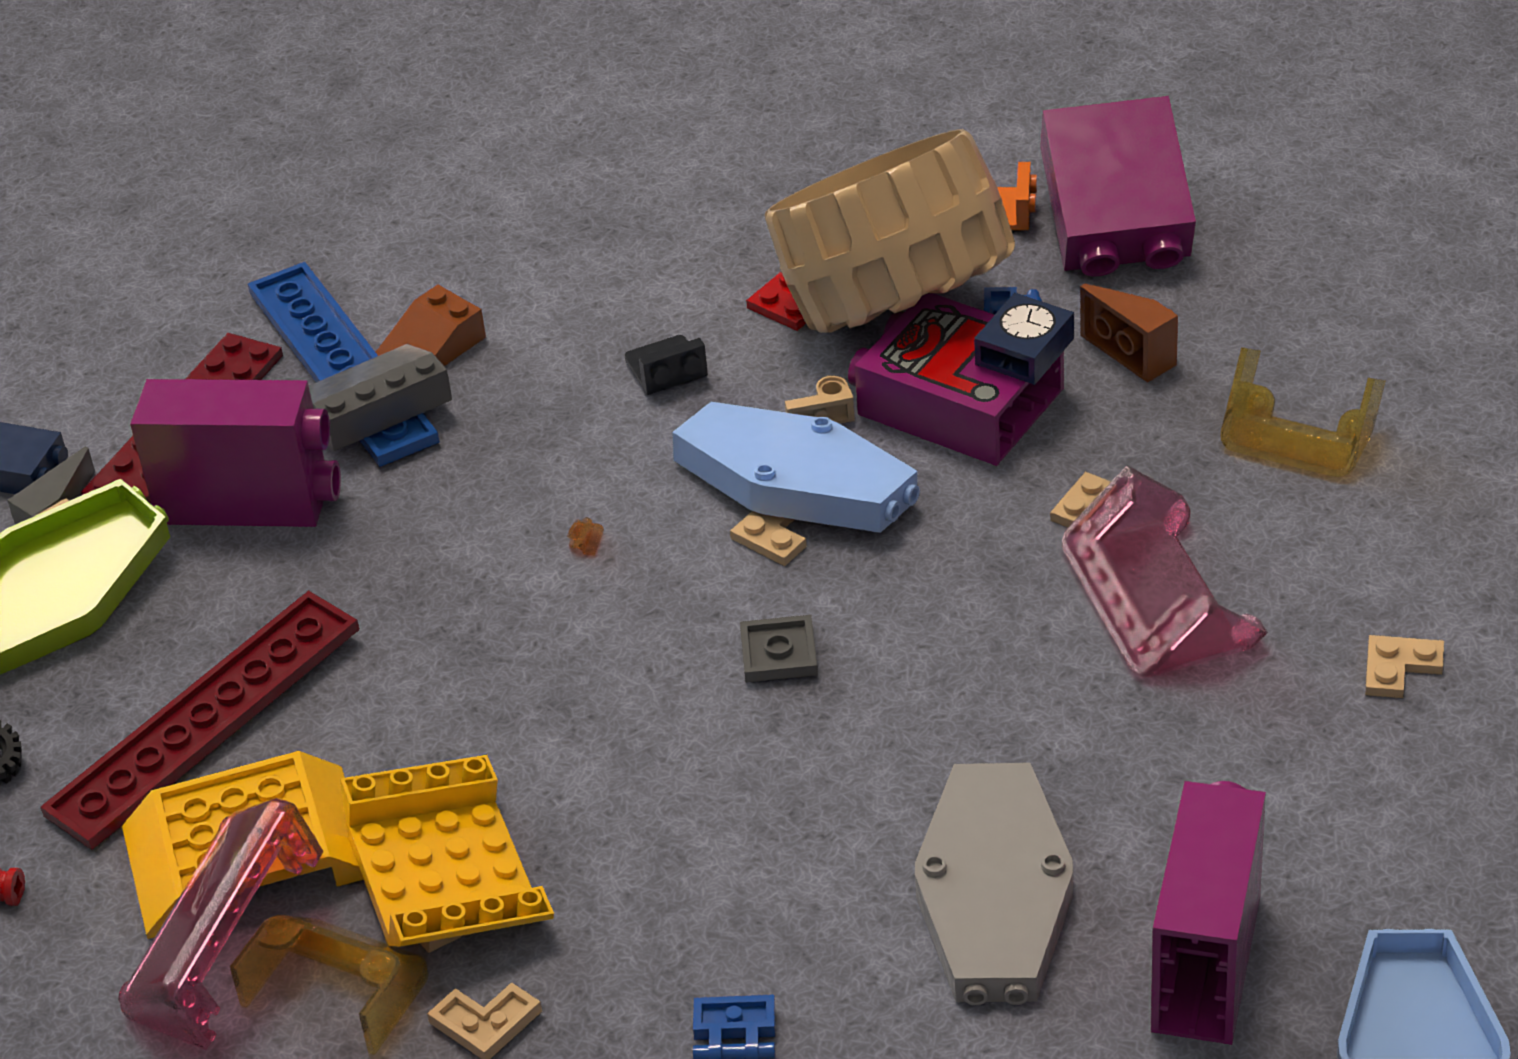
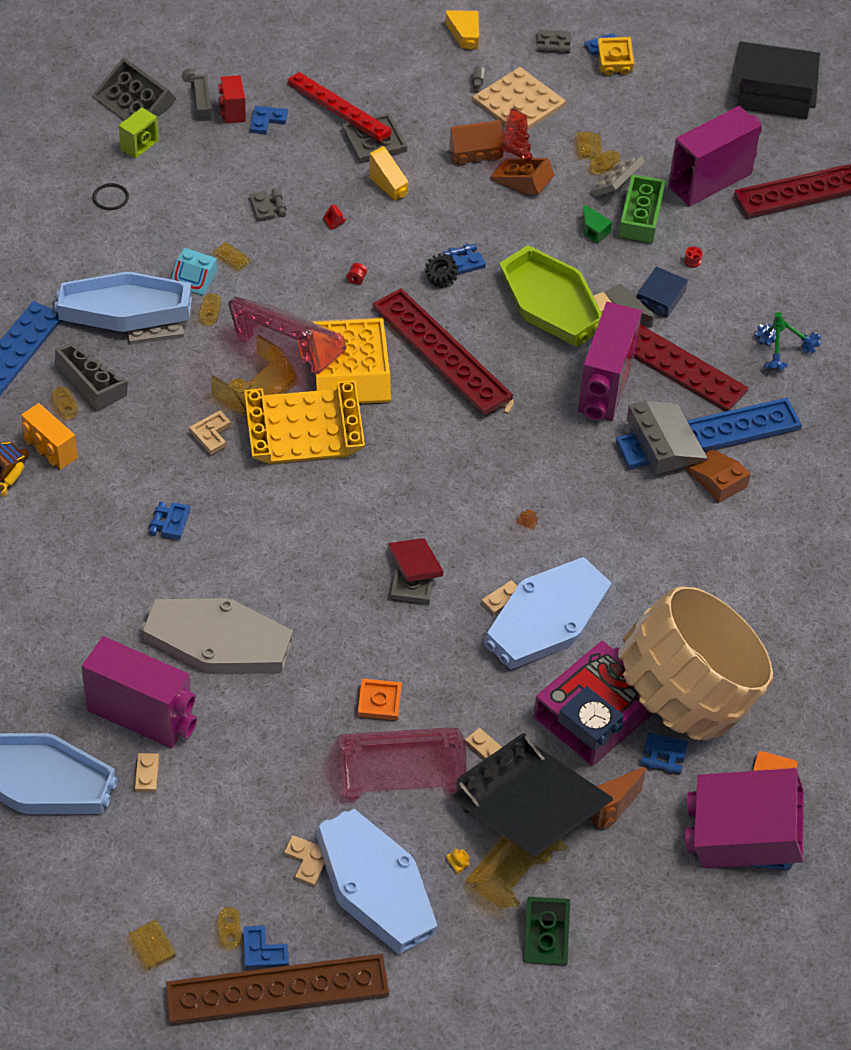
camera: 95 degrees right, 10 degrees up
(116, 277) = (767, 335): none -> blue plant
(668, 363) = (662, 575): black bracket -> none
(731, 645) = (415, 559): none -> dark red tile
(832, 401) = (599, 634): tan plate -> none
(1044, 639) = (379, 699): none -> orange plate
(1194, 389) = (528, 795): none -> black door
(1312, 490) = (458, 860): none -> yellow plate
(1331, 913) = (147, 772): none -> tan plate
(1406, 561) = (376, 881): none -> light blue container
(1407, 369) = (547, 930): none -> dark green slope

